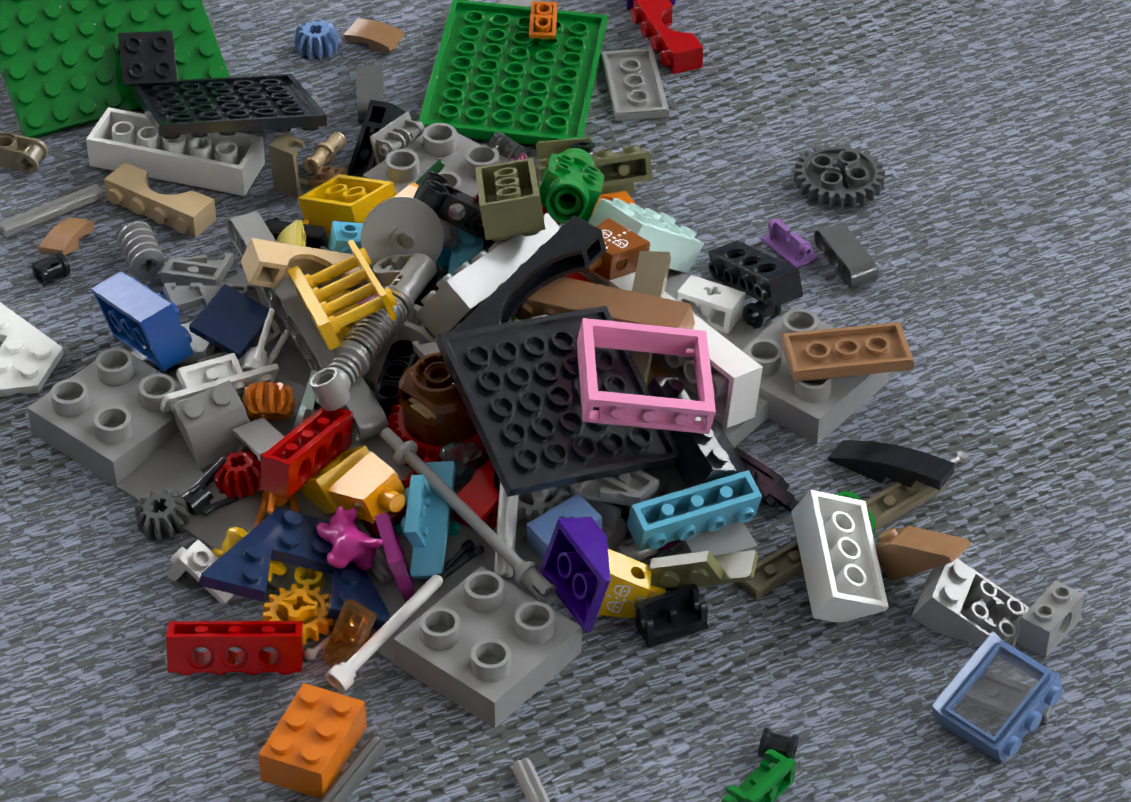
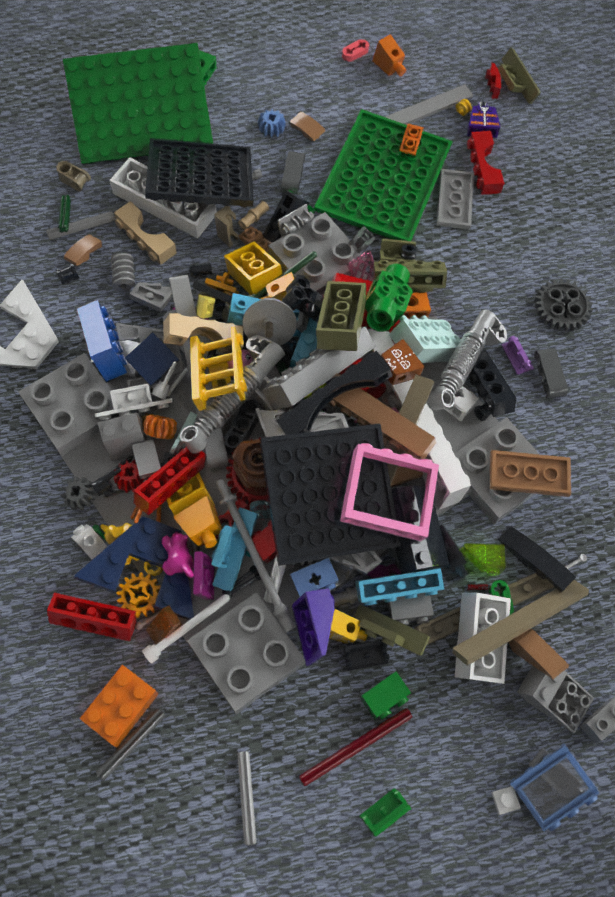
camera: 10 degrees right, 25 degrees up
(22, 197) = (64, 213): none -> dark green axle
(147, 58) = (161, 124): black hinge -> none
(689, 726) = (355, 747): none -> dark red axle
(716, 656) = (385, 696): none -> green brick
(726, 219) = (485, 331): none -> light grey piece
(782, 744) = (405, 782): black bush -> none
(814, 472) = (486, 557): none -> clear neon green slope
(887, 521) = (518, 623): none -> dark tan tile
(935, 741) = (506, 800): none -> white plate

